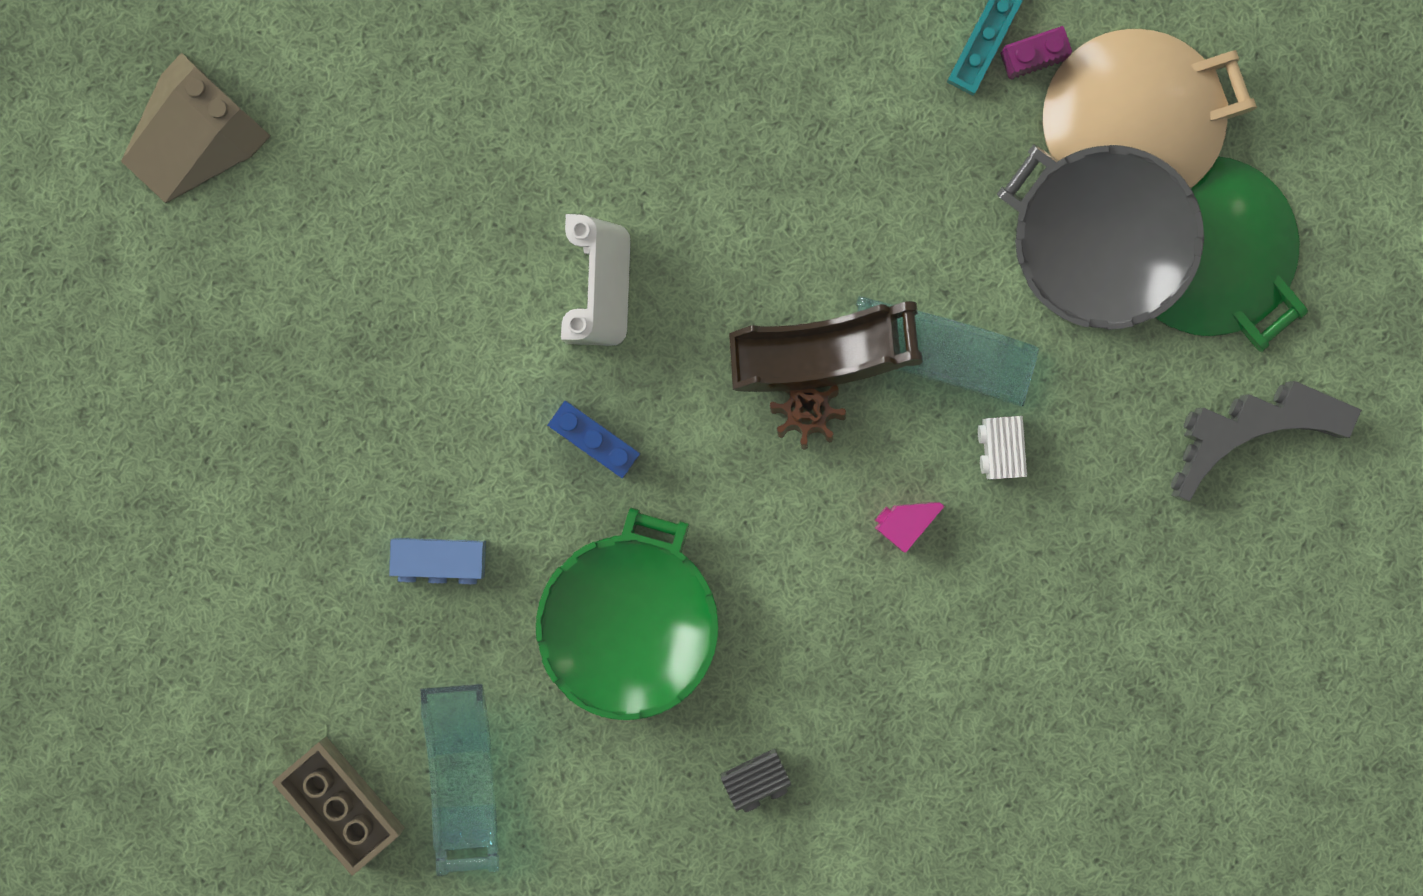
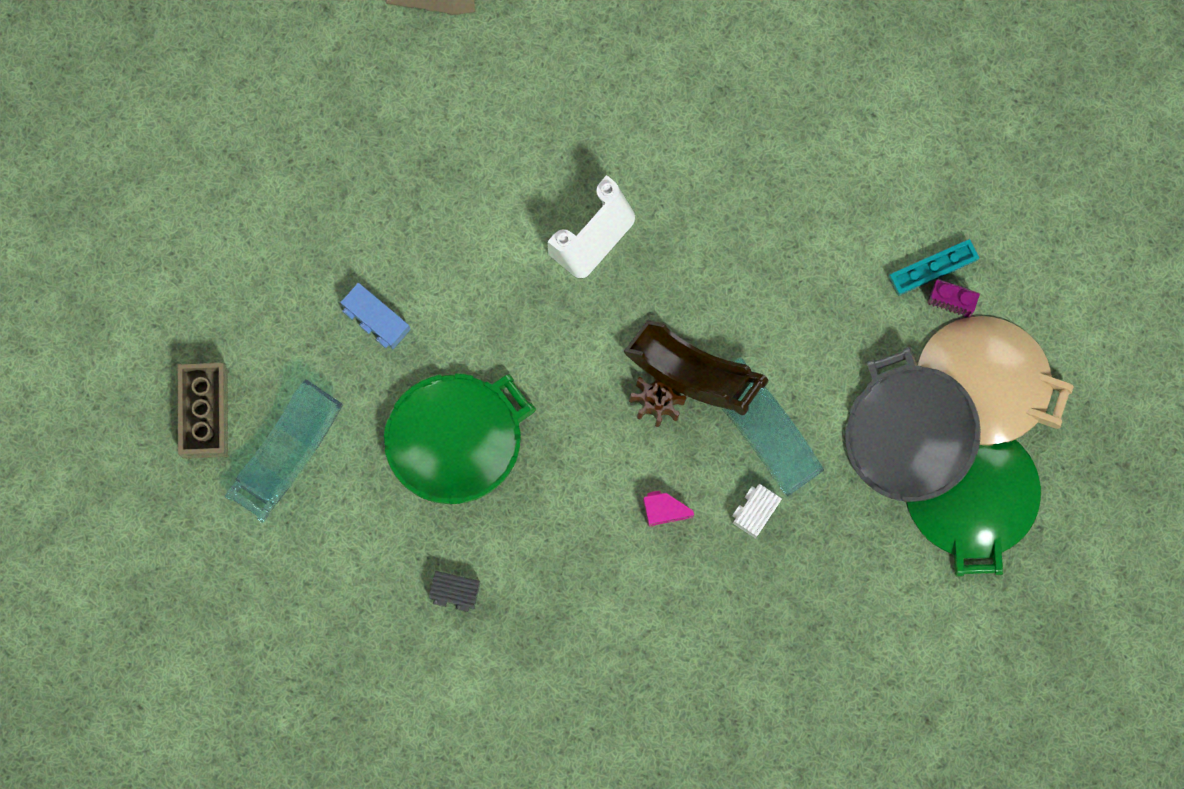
camera: 35 degrees right, 10 degrees down
(594, 439) = (520, 318): blue brick -> none
(1250, 417) = (952, 627): dark grey arch -> none

